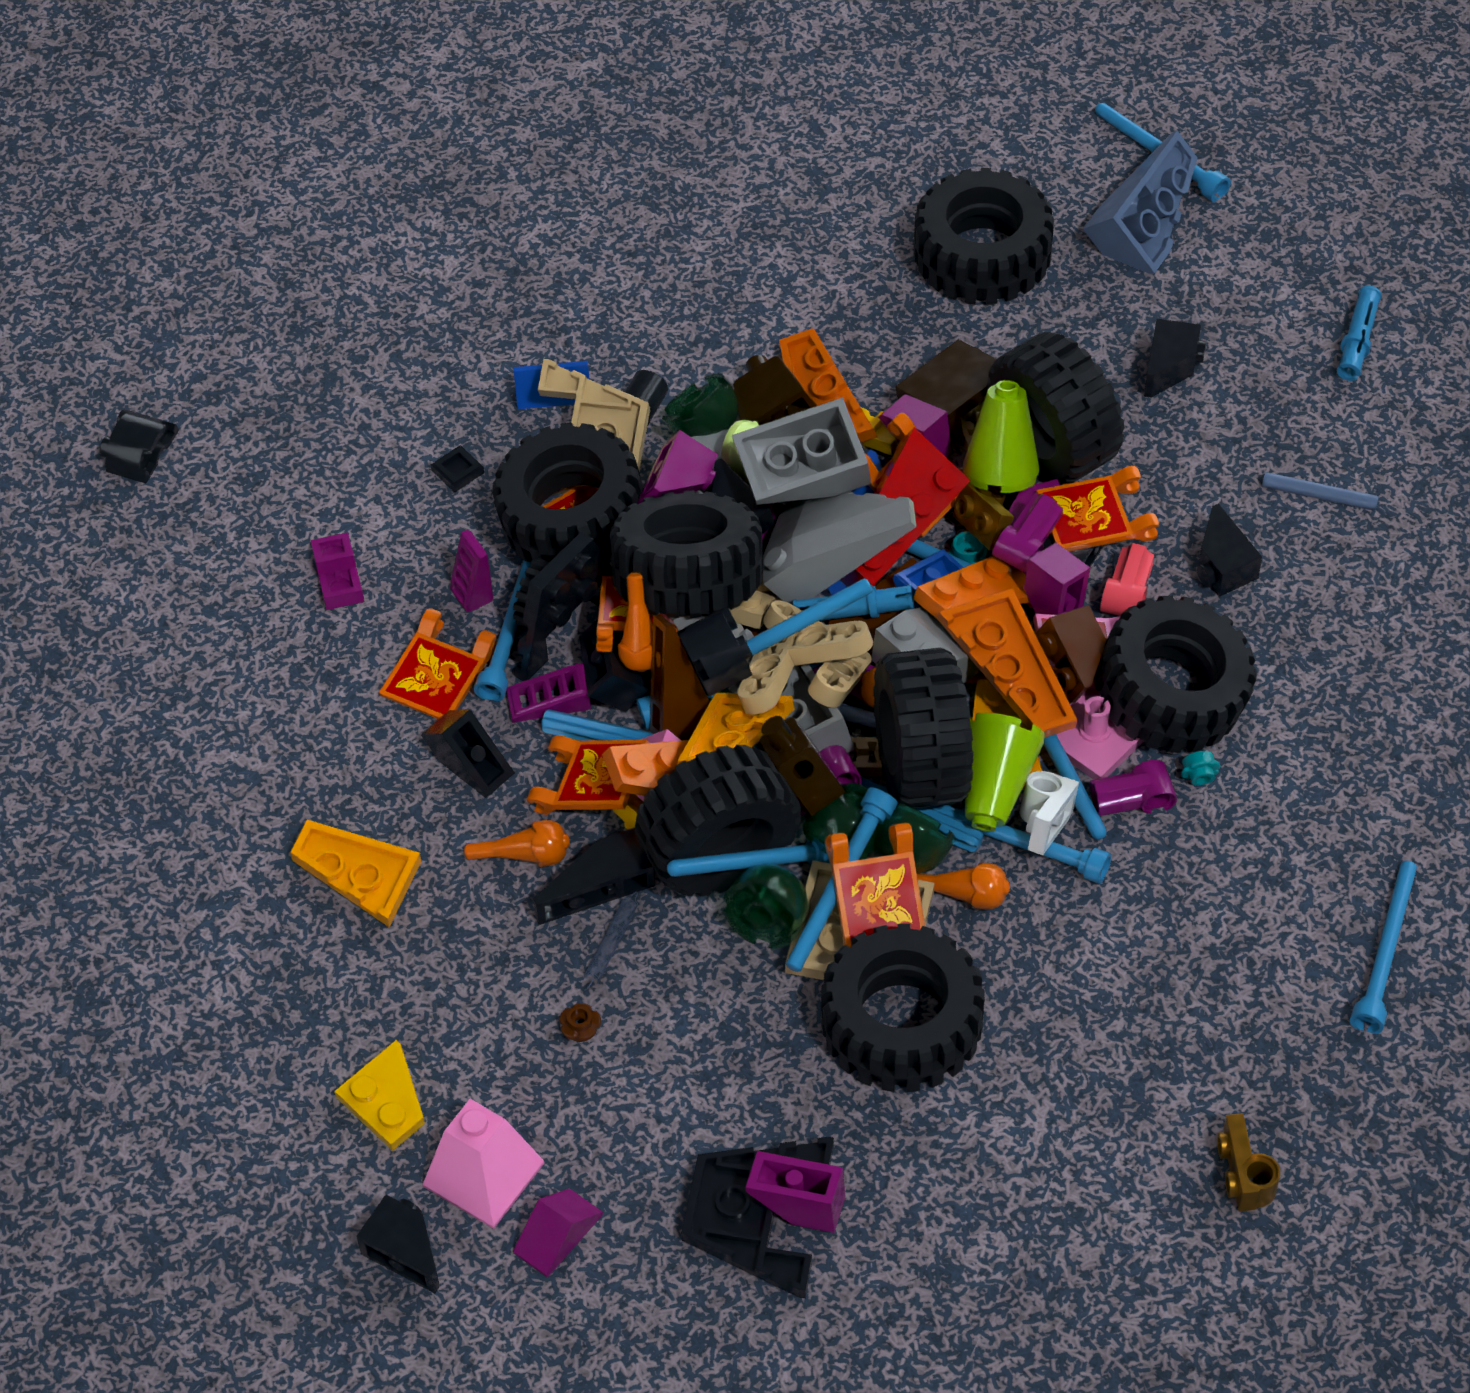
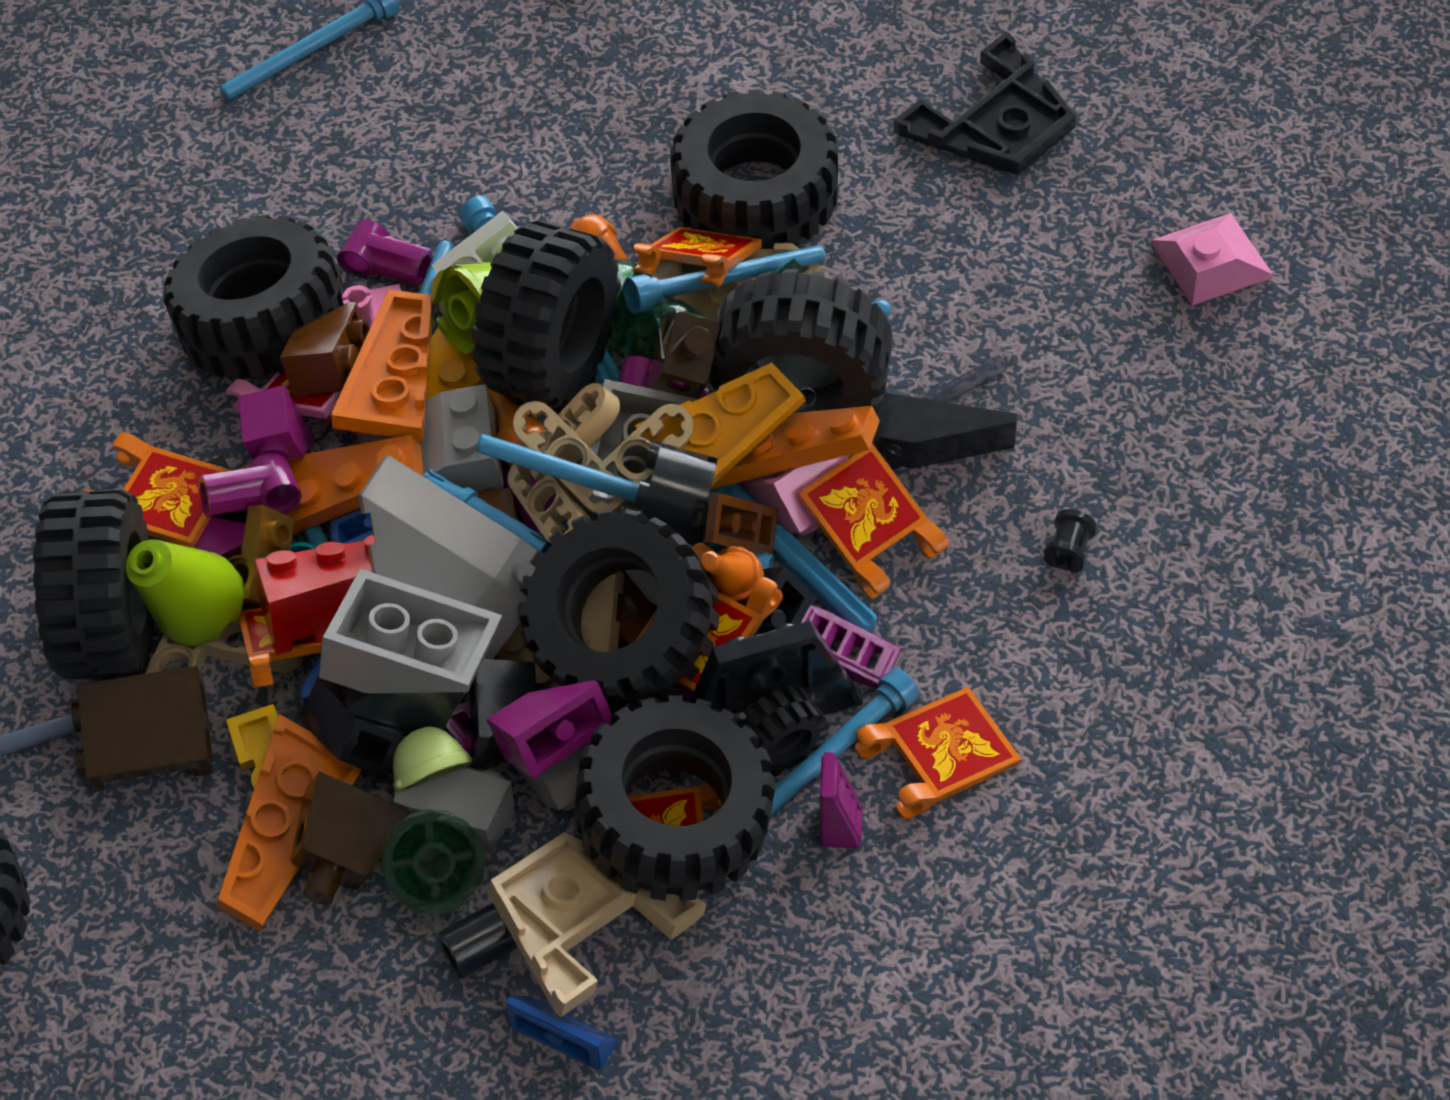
camera: 145 degrees left, 0 degrees up
(337, 571) = (975, 932): magenta slope -> none
(357, 867) = (1159, 570): light orange wing -> none
(384, 1097) = (1264, 359): yellow wing -> none
(400, 1242) = (1325, 225): black slope -> none
(440, 852) = (1070, 540): none -> black bush
(457, 468) = (748, 990): black tile -> none
(468, 751) = (977, 628): black slope -> none
(541, 844) = (965, 492): orange piece -> none
(555, 1229) = (1173, 177): magenta slope -> none
(582, 1031) = (1044, 334): reddish brown plate -> none
(798, 1190) = (955, 81): magenta slope -> none
(928, 420) = (229, 693): magenta slope -> none
(1128, 581) = (203, 430): coral piece -> none
(1226, 555) = (78, 412): black slope -> none

